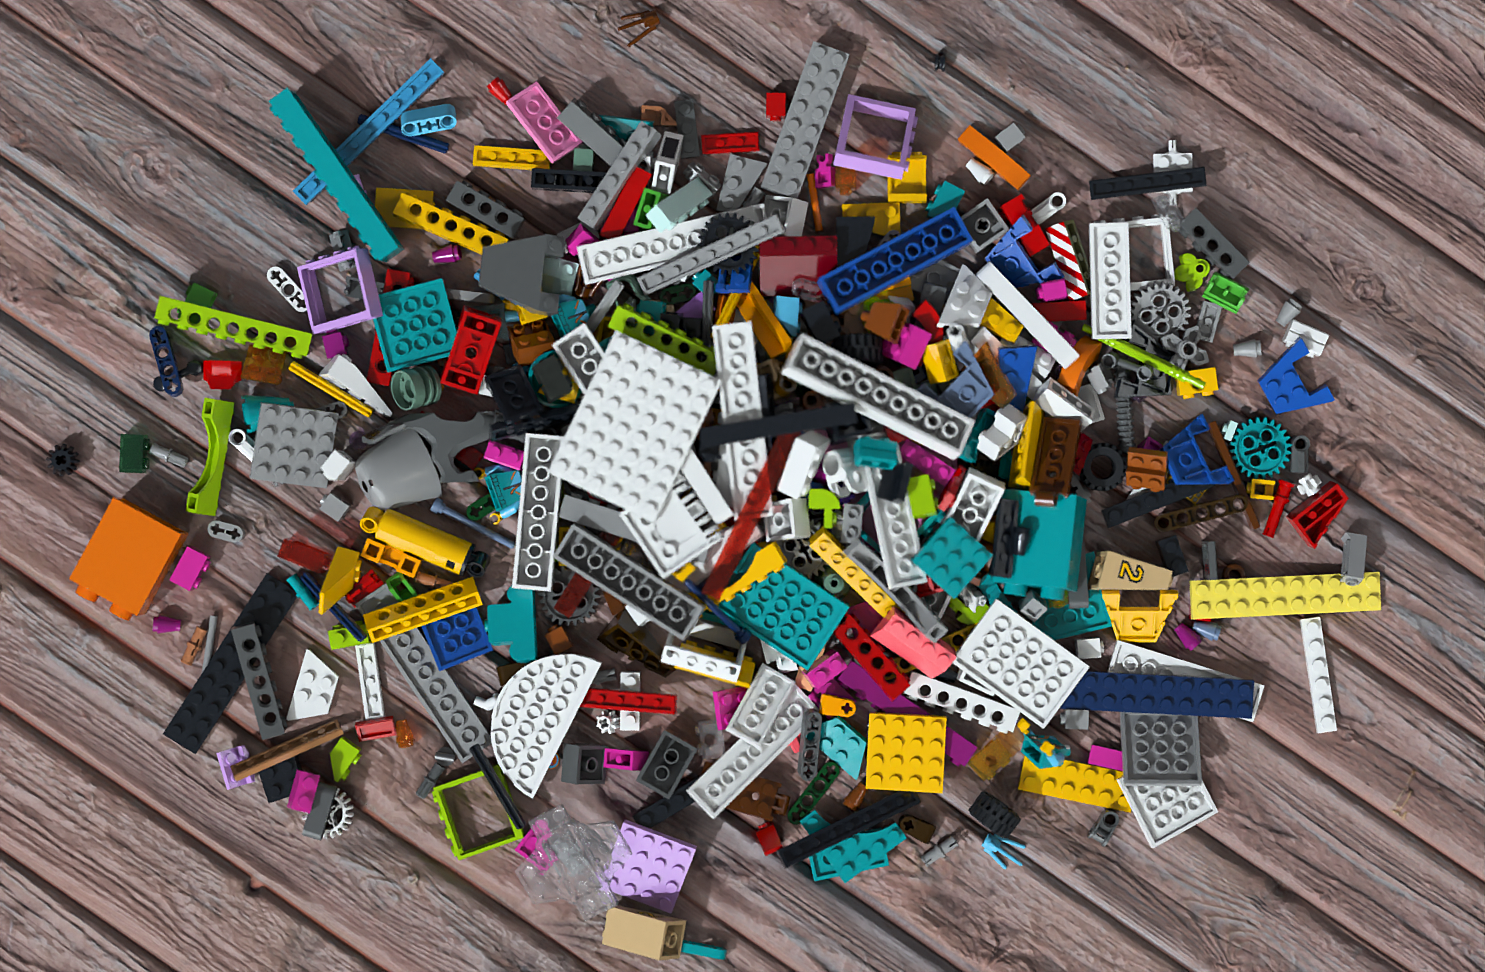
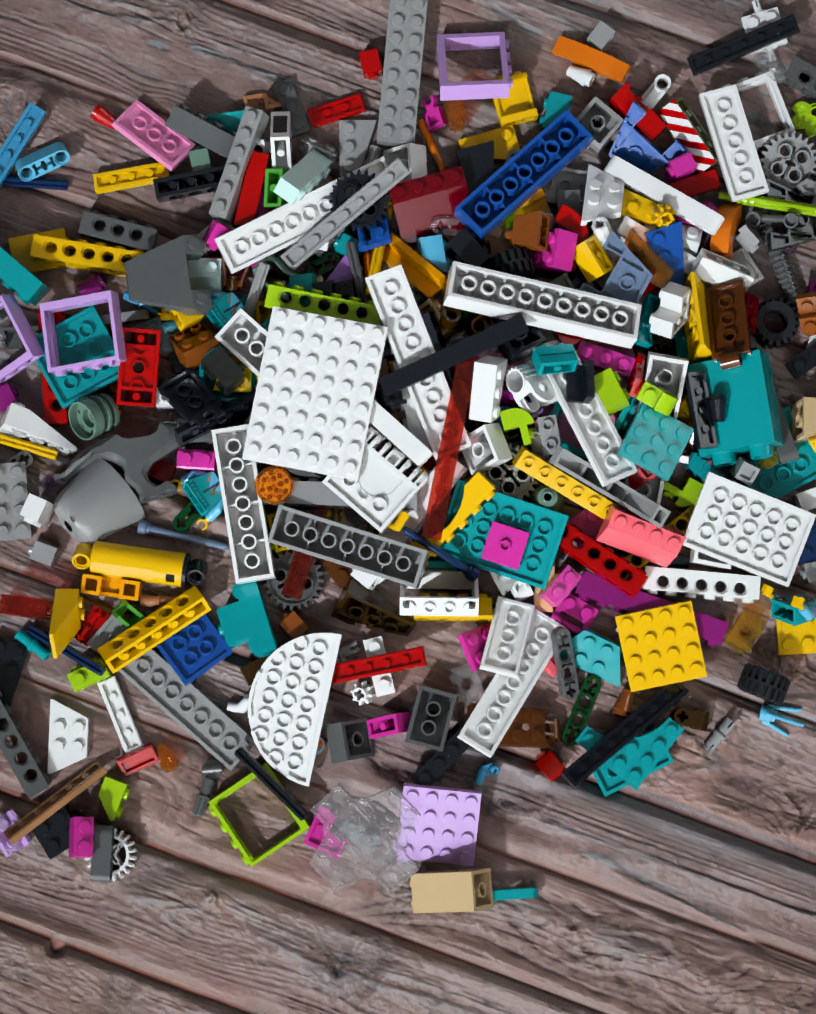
camera: 15 degrees left, 5 degrees down
(392, 304) = (50, 339): none -> lavender window
(572, 503) = (274, 485): none -> clear orange tile
(648, 18) = (228, 14): reddish brown plant -> none
(706, 826) = (486, 770): none -> dark azure arm
(781, 618) = (505, 545): none -> dark pink plate
(833, 704) = (577, 618): light orange piece -> none
(966, 520) = (657, 398): none -> lime brick
(972, 597) = (683, 479): white hinge -> none
(1020, 336) = (662, 214): none -> yellow gear

